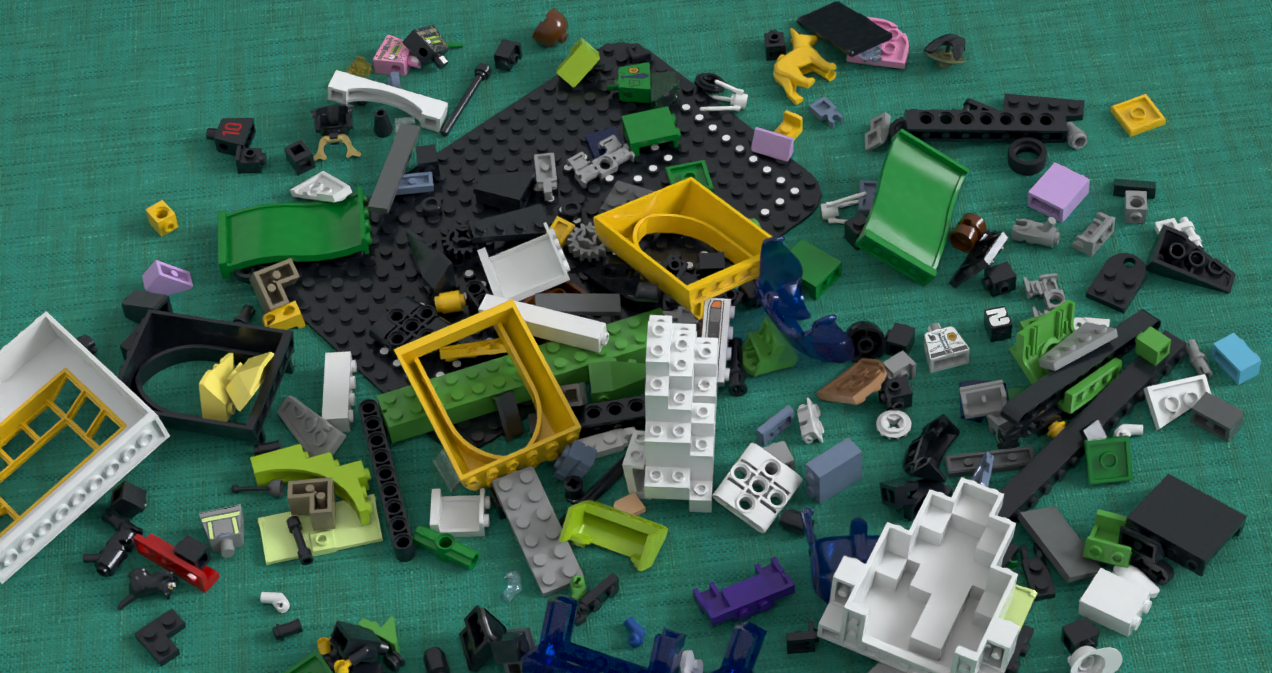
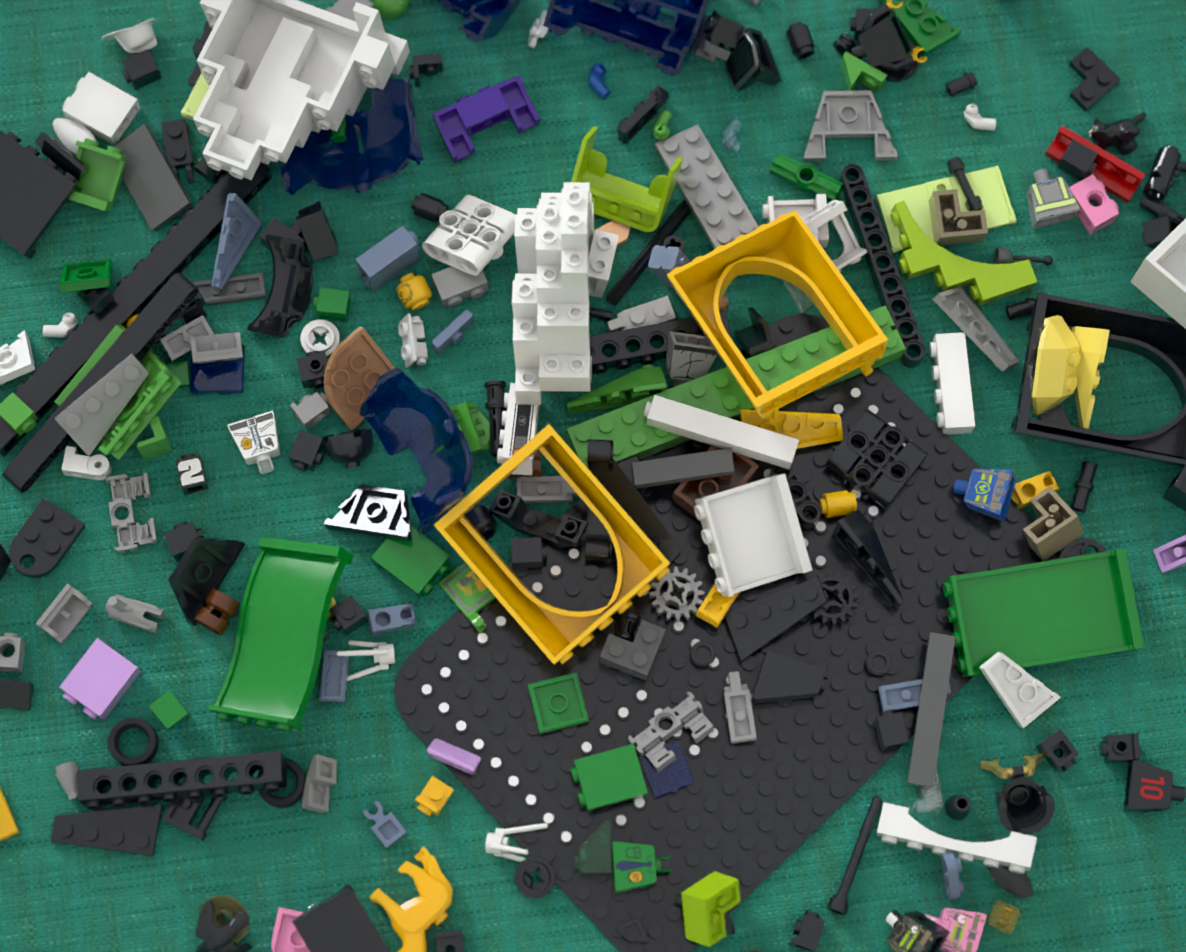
camera: 170 degrees right, 25 degrees up
(184, 521) = (1094, 217): none -> bright pink brick
(323, 305) = (988, 491): none -> blue torso
(402, 600) = (849, 116): none -> light grey wing
(436, 488) = (834, 212): none -> white panel
(806, 451) = (414, 291): none -> yellow head
(824, 230) = (391, 619): none -> sand blue leg
(838, 293) = (374, 513): none -> wing
(883, 446) = (332, 304): none -> green brick
(999, 173) = (169, 710): none -> green panel

